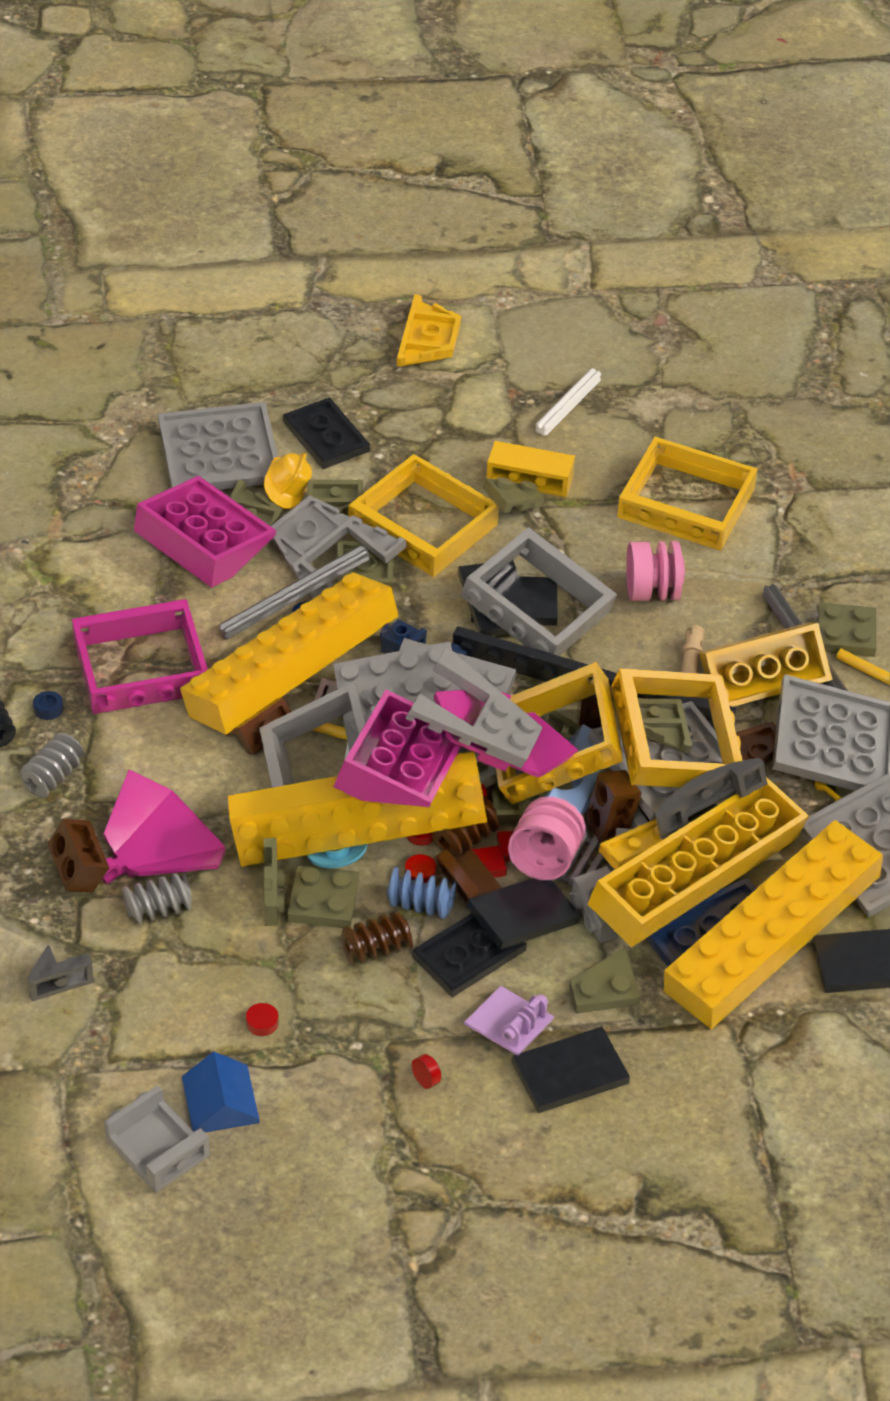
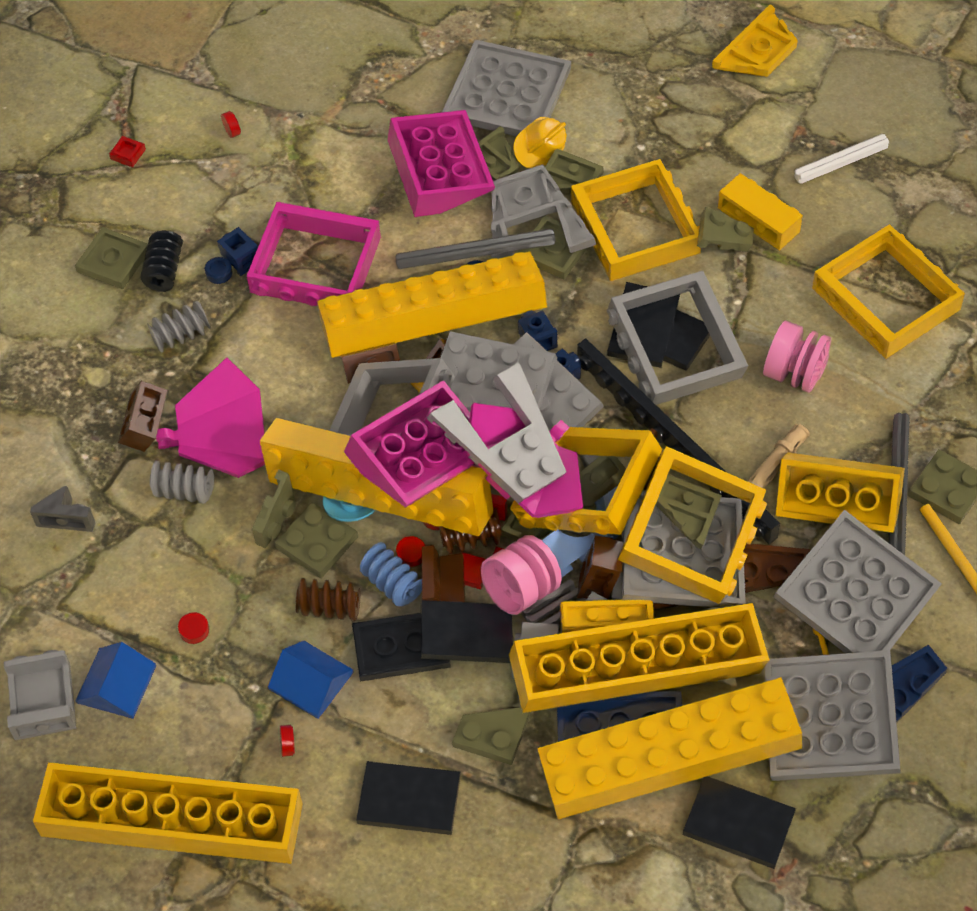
camera: 35 degrees right, 10 degrees up
(61, 676) = (238, 249): none -> dark blue brick
(326, 433) = (608, 109): black tile -> none
(364, 1176) = (169, 812): none -> yellow brick
(405, 1015) = (308, 677): none -> blue slope
(511, 1019) = (387, 727): lavender hinge -> none
(707, 789) = (678, 595): dark grey slope -> none

